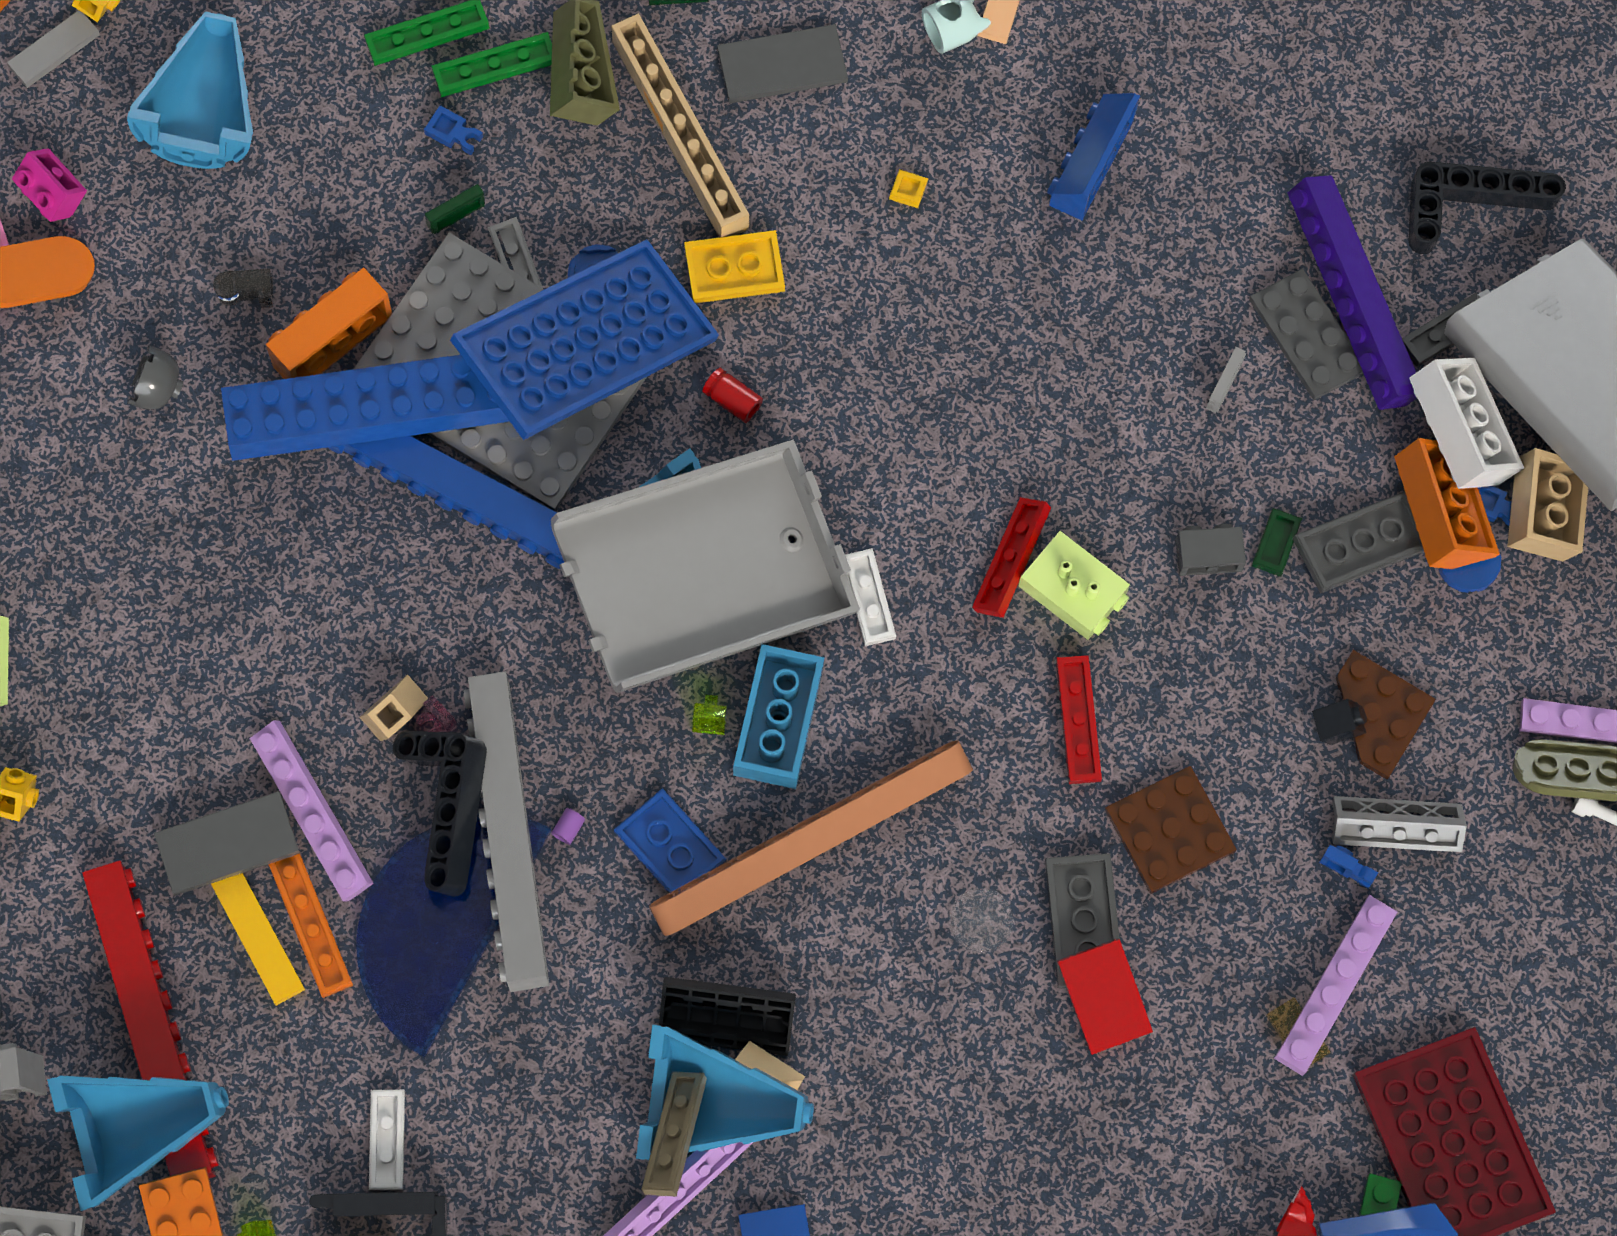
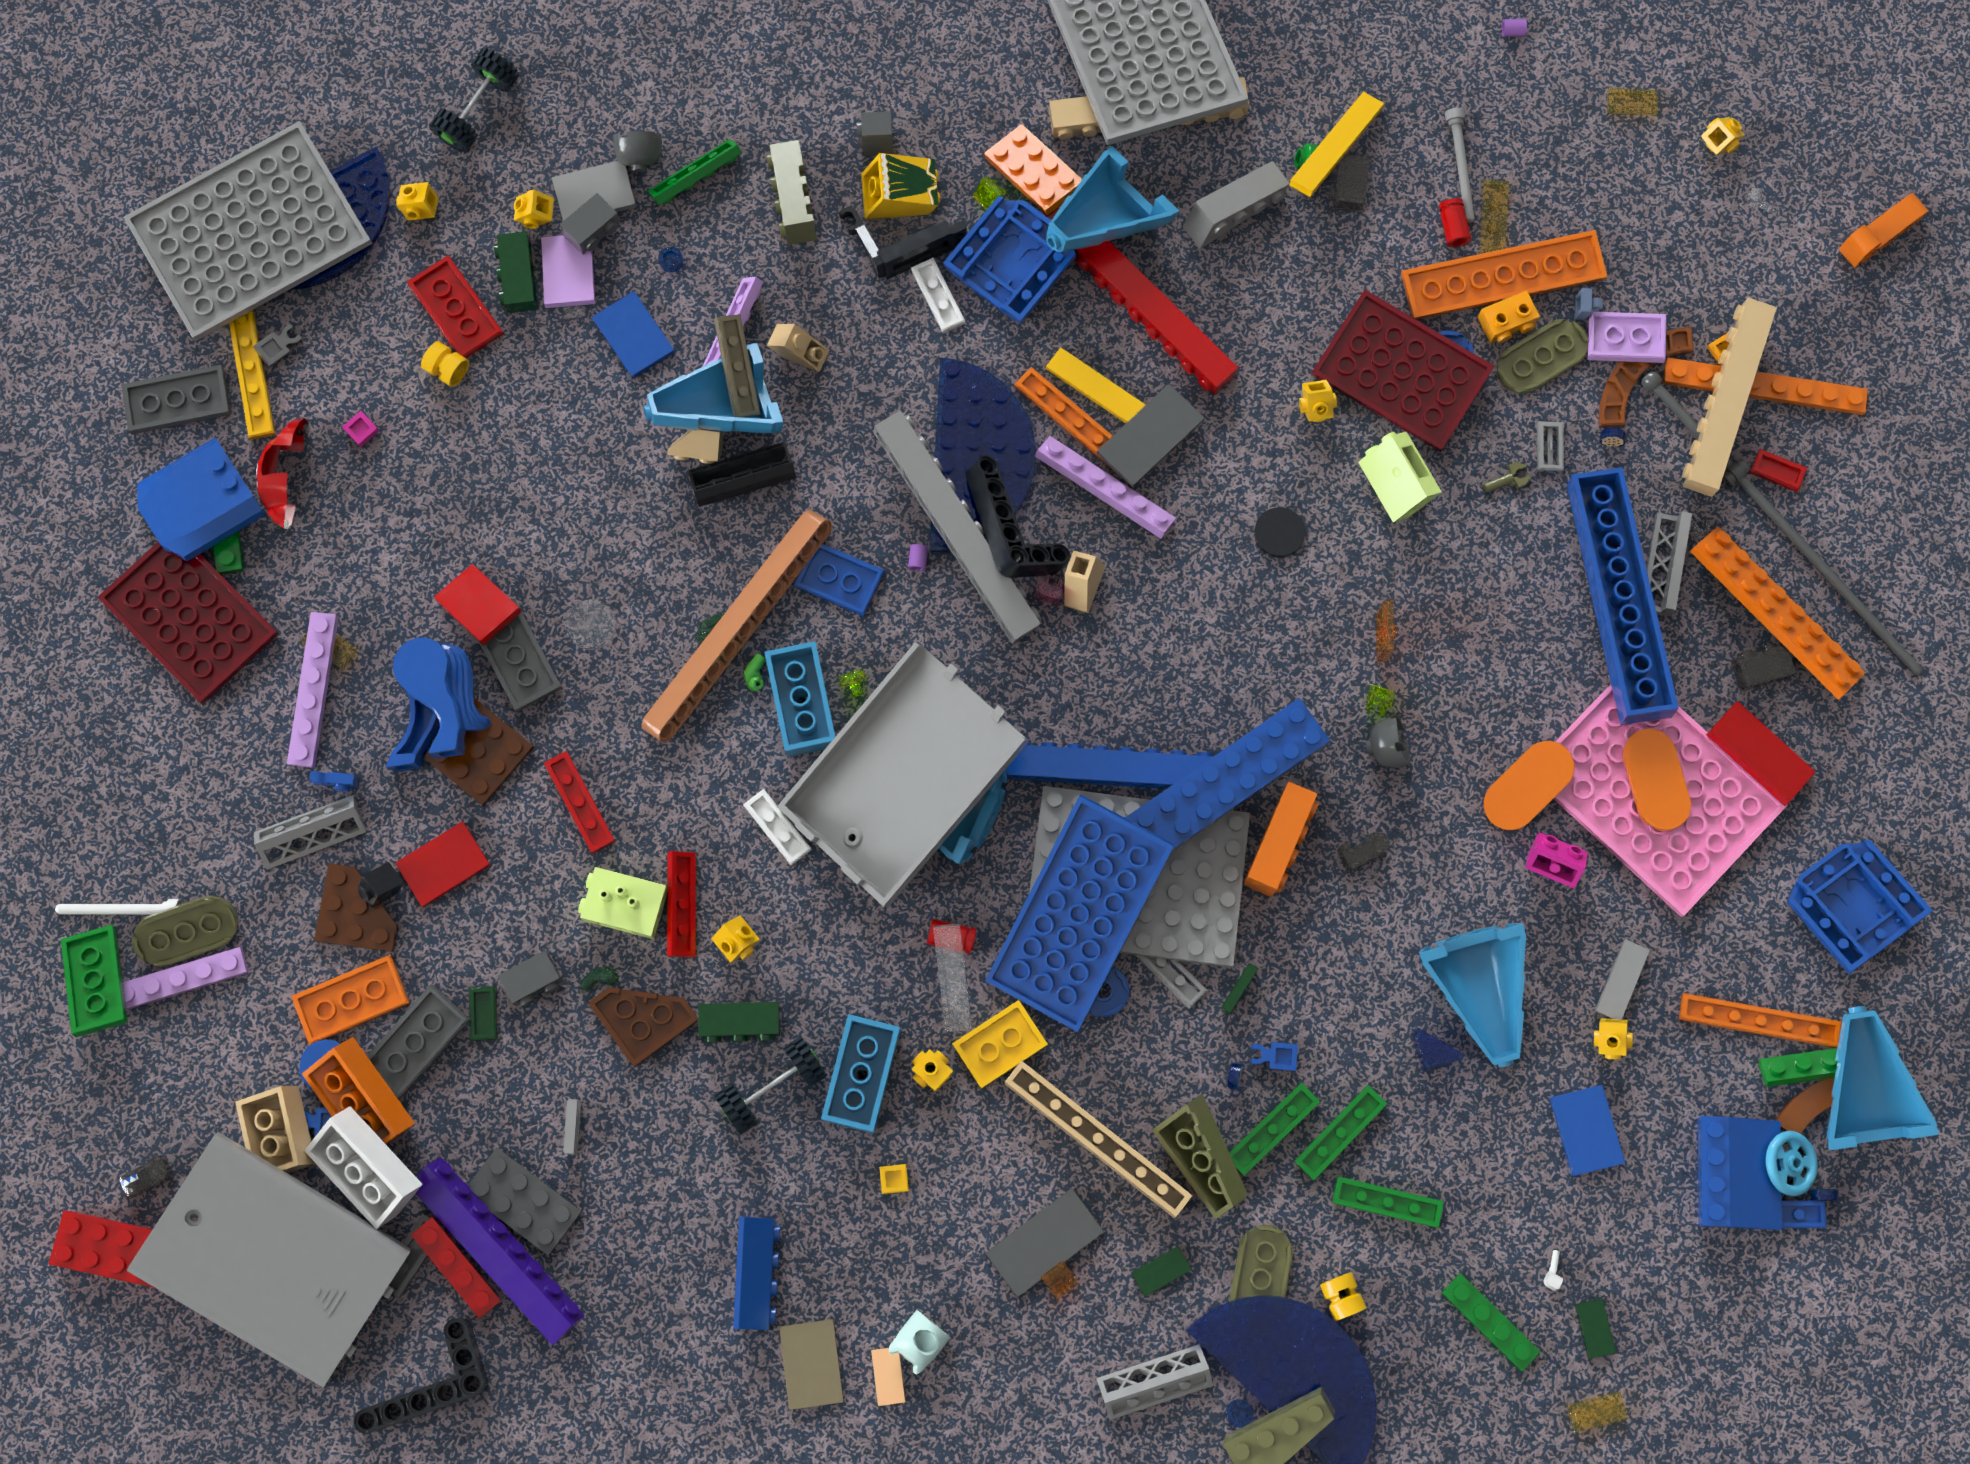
camera: 160 degrees right, 5 degrees up
(90, 496) = (1385, 631): none -> clear orange plate
(135, 437) = (1379, 696): none -> clear neon green tile
(141, 670) = (1279, 532): none -> black tile
(277, 1137) = (1009, 258): none -> blue wedge
(288, 60) = (1433, 1052): none -> clear blue slope
(505, 129) = (1235, 1076): none -> clear blue tile
(588, 1146) = (798, 346): none -> tan slope
(752, 347) = (952, 977): none -> clear plate
(785, 21) = (1059, 1280): none -> clear orange tile
(819, 268) = (938, 1077): none -> yellow brick
(820, 777) = (752, 673): none -> bright green arm
(848, 854) = (706, 626): none -> clear green arm
(895, 295) = (865, 1047): none -> dark azure brick
(968, 491) = (736, 939): none -> yellow brick
(1001, 408) = (739, 1021): none -> dark green brick
(1042, 317) = (737, 1108): none -> black axle
(1073, 55) = (811, 1364): none -> dark tan tile
(1106, 456) = (642, 1020): none -> reddish brown plate
(1133, 525) = (599, 974): none -> clear green arm
(1186, 909) = (439, 694): none -> blue animal
(1259, 721) = (442, 864): none -> red tile
(1404, 296) = (455, 1267): none -> red plate
(1417, 620) = (350, 999): none -> orange tile

